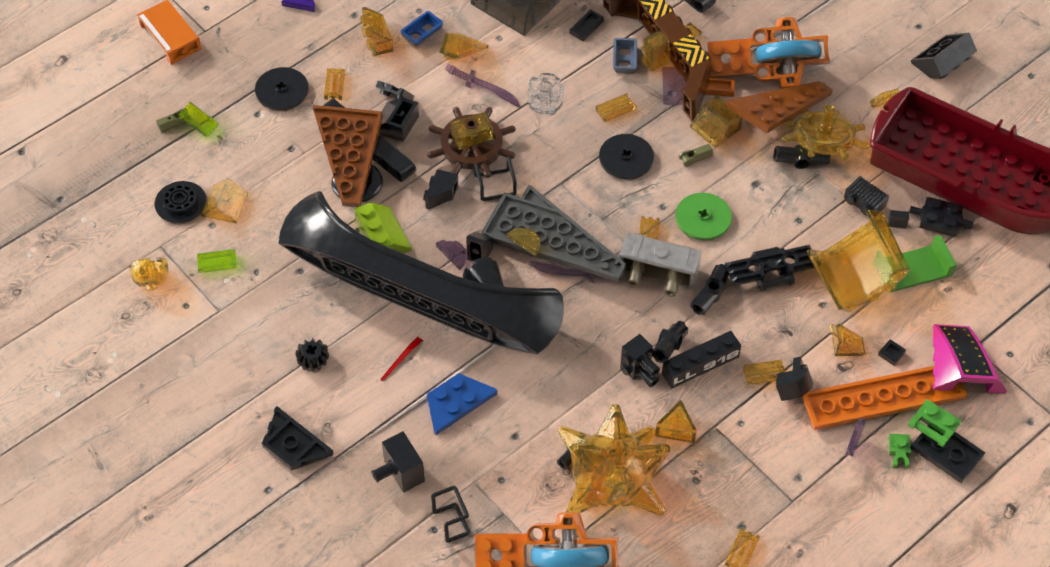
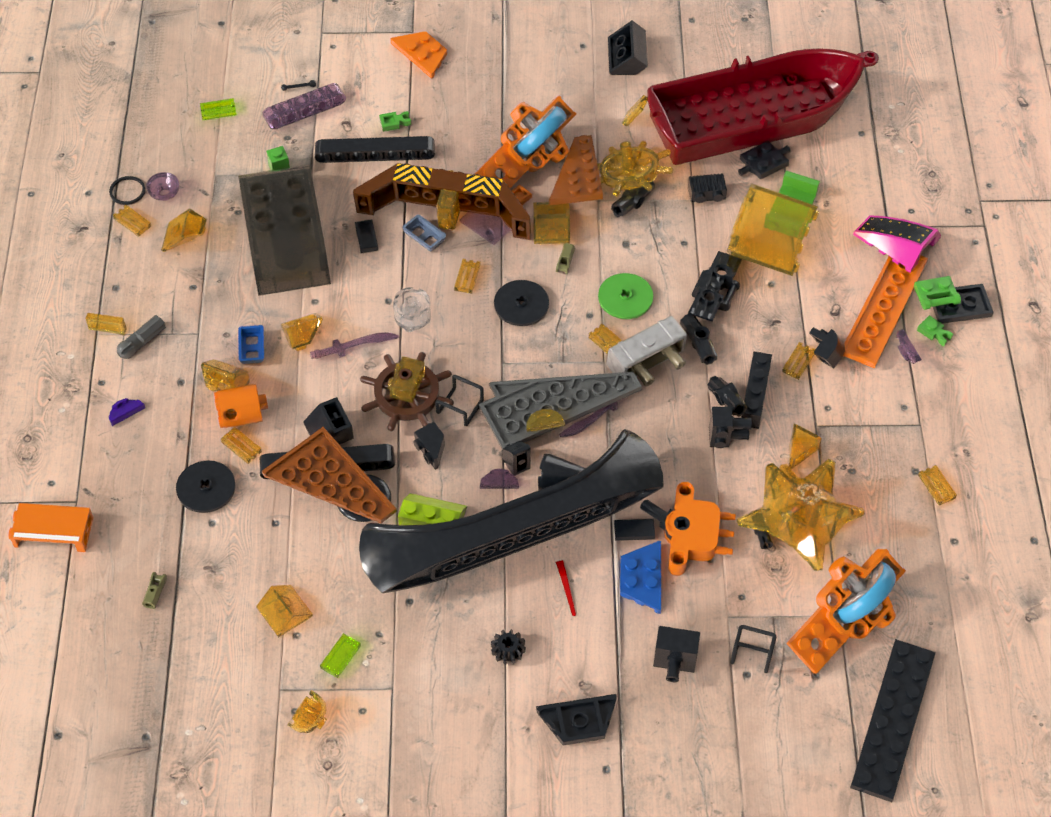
camera: 50 degrees left, 0 degrees up
(175, 204) = (247, 639): black wheel -> none
(198, 119) = (176, 569): clear neon green tile -> none
(358, 56) = (239, 406): none -> orange cylinder
(387, 89) = (308, 406): black wing -> none
(492, 366) = (634, 529): none -> black tile
(530, 411) = (690, 528): none -> orange piece
(846, 341) = (816, 294): clear yellow slope -> none
(891, 352) = (850, 274): black tile -> none
(898, 219) = (743, 184): black tile -> none

